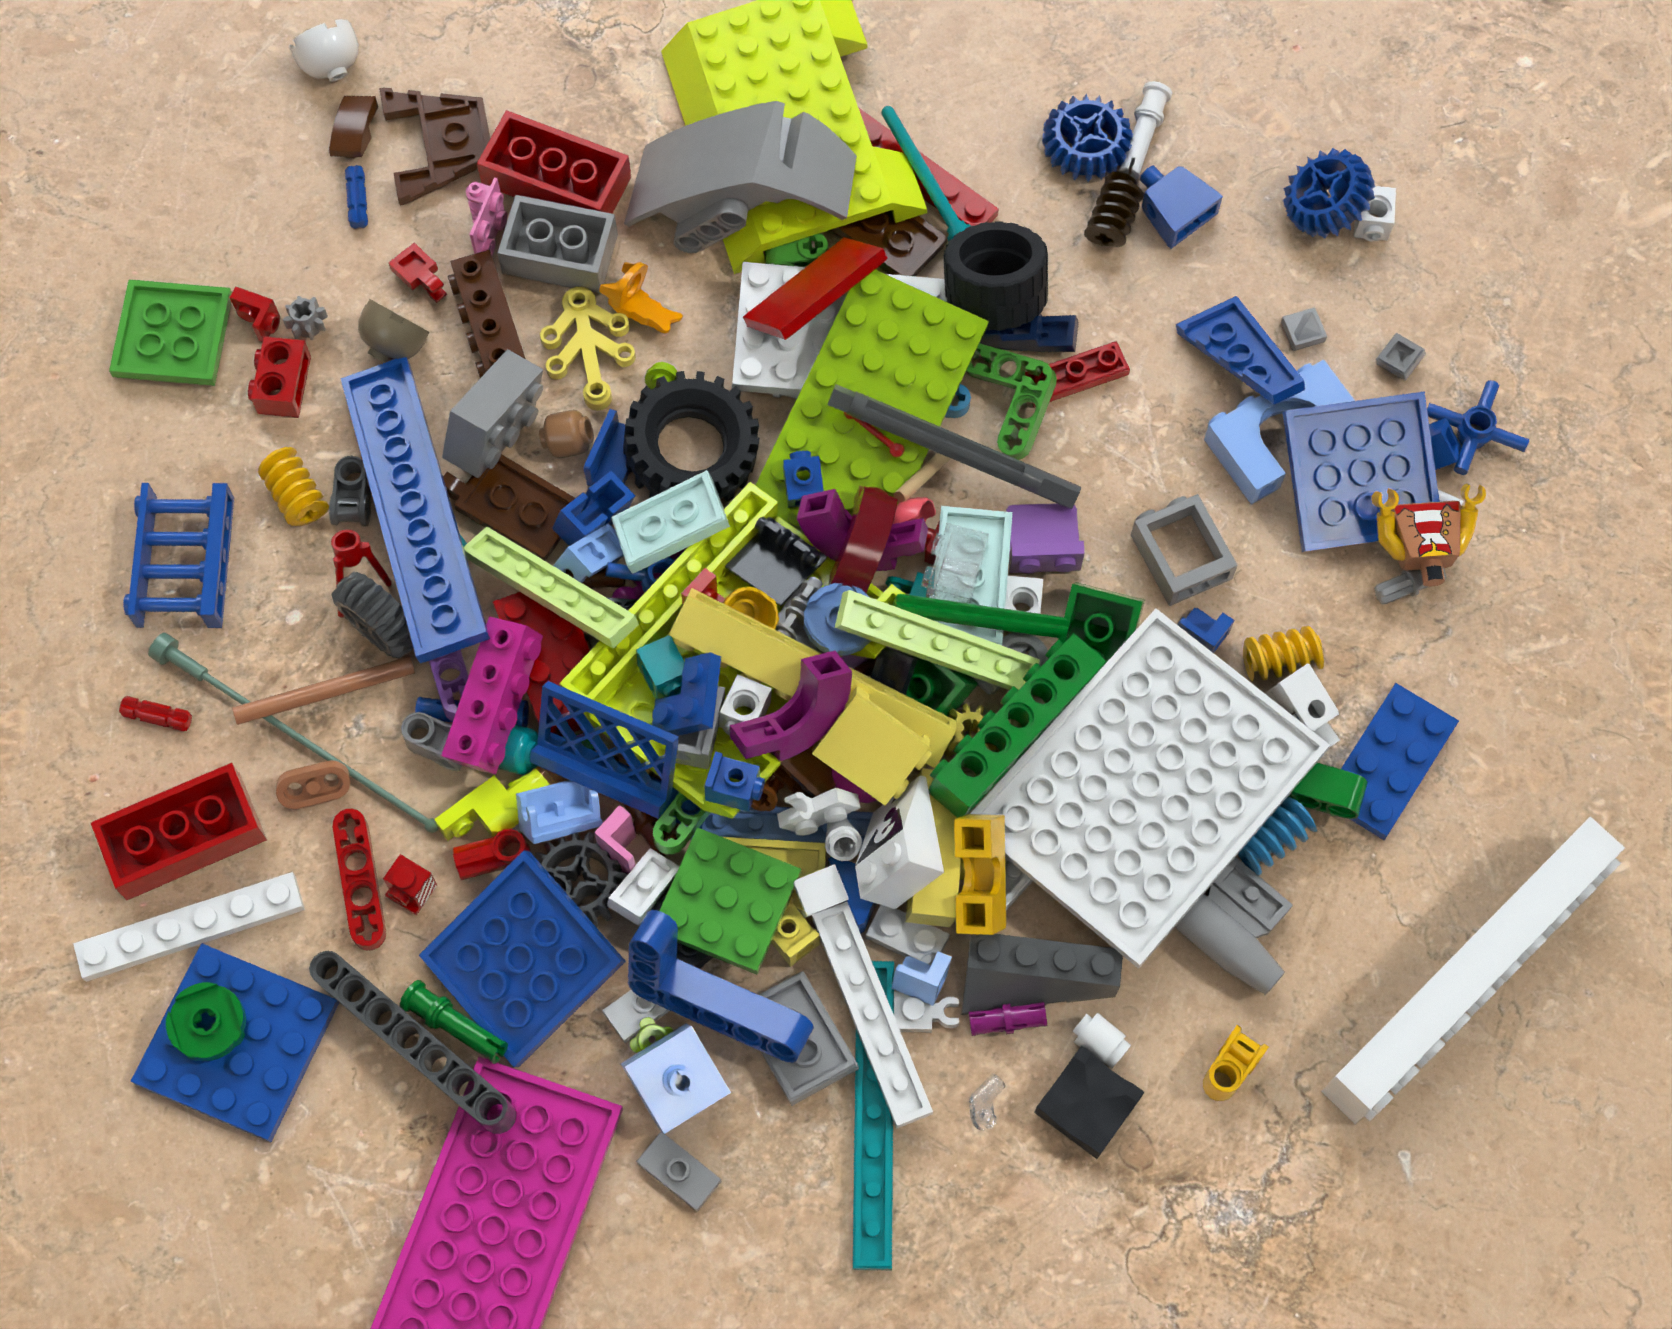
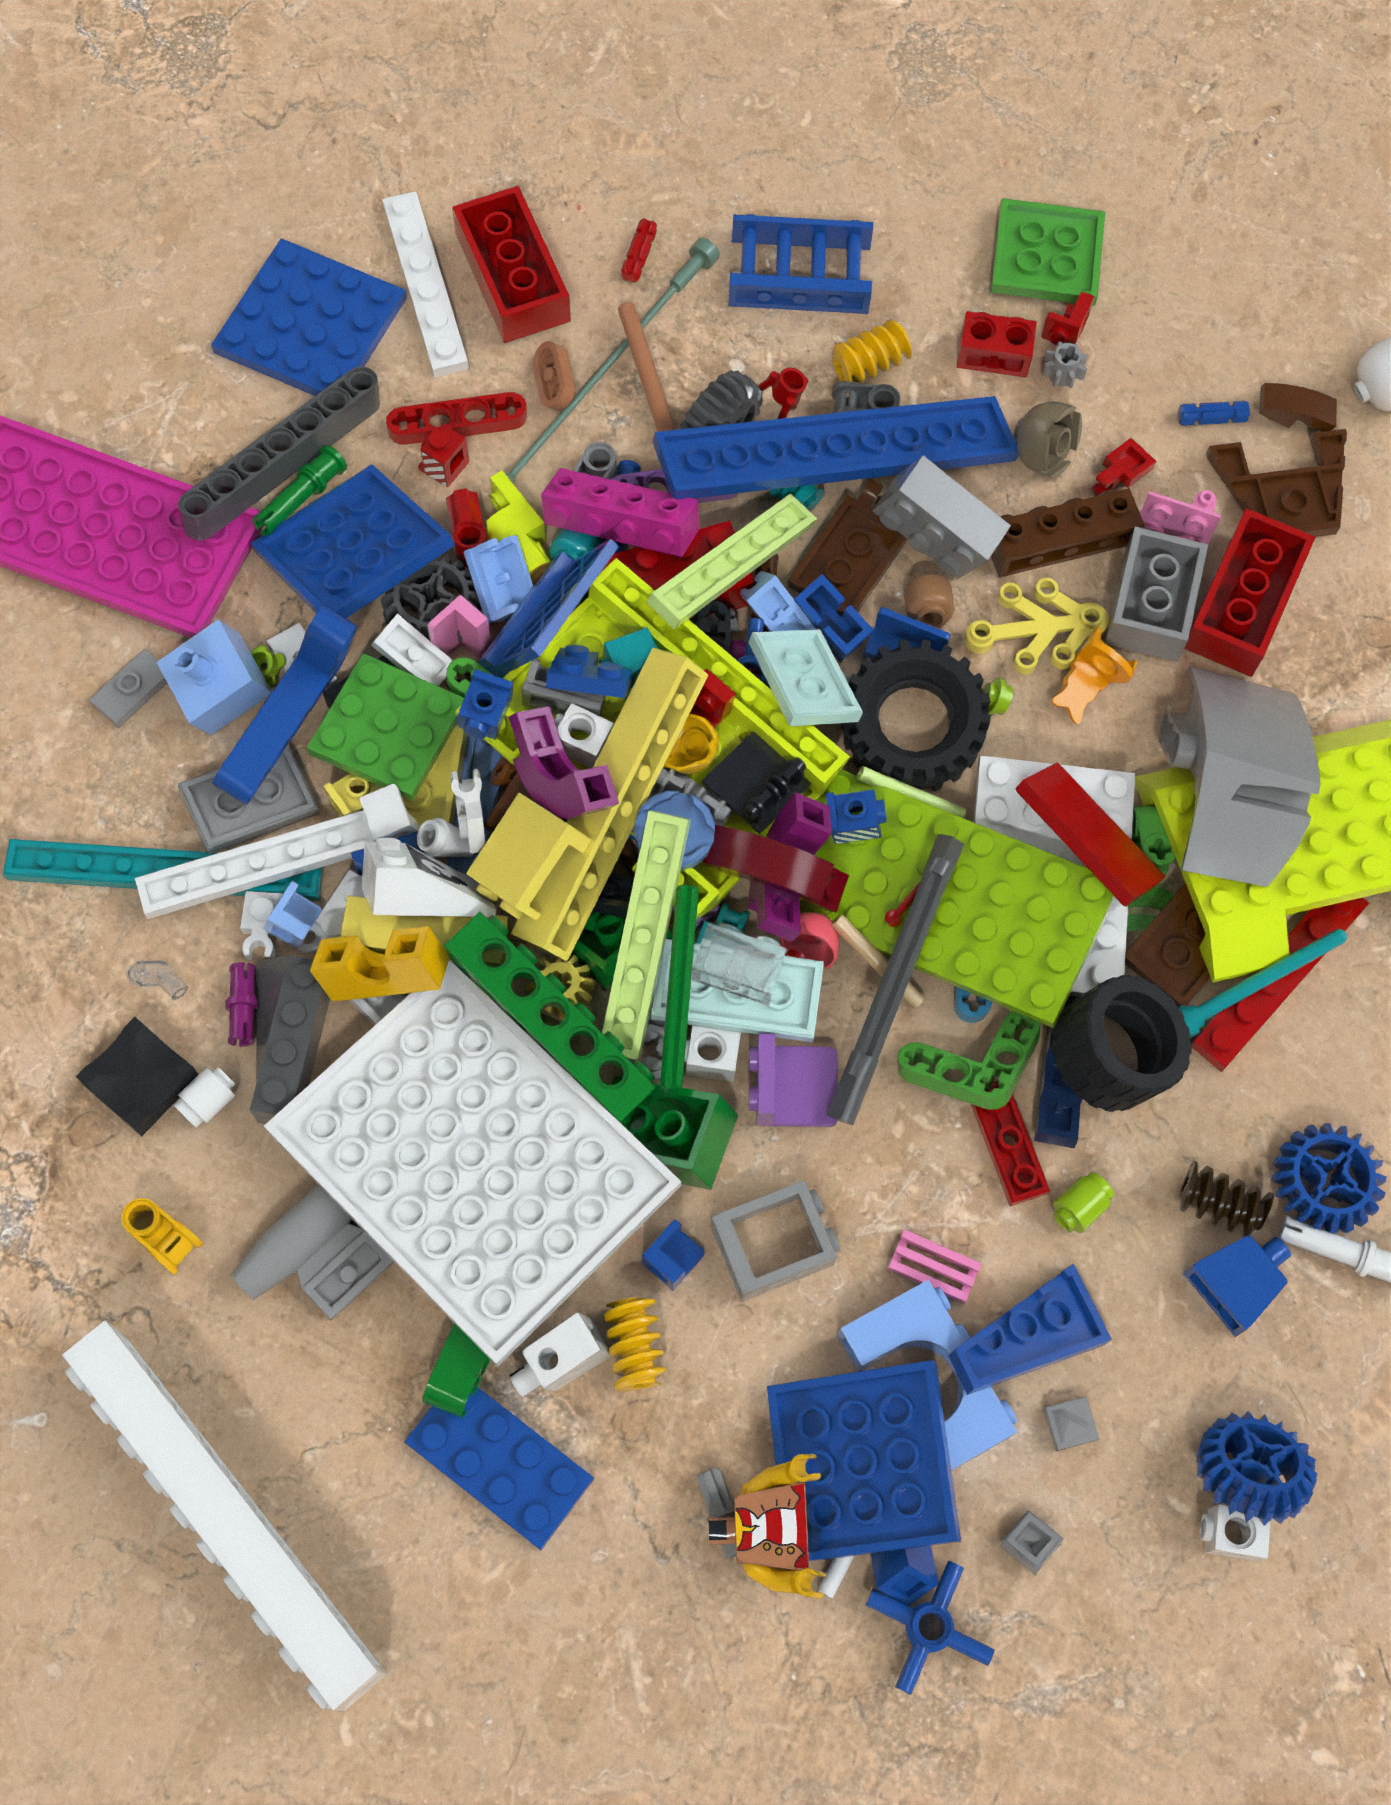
camera: 90 degrees right, 0 degrees up
(187, 1012) = (326, 303): green plate -> none
(766, 444) = (878, 779): none -> yellowish green piece
(1125, 315) = (1083, 1203): none -> lime brick
(1196, 405) = (941, 1252): none -> bright pink tile
(1284, 824) = (411, 1306): dark azure piece -> none

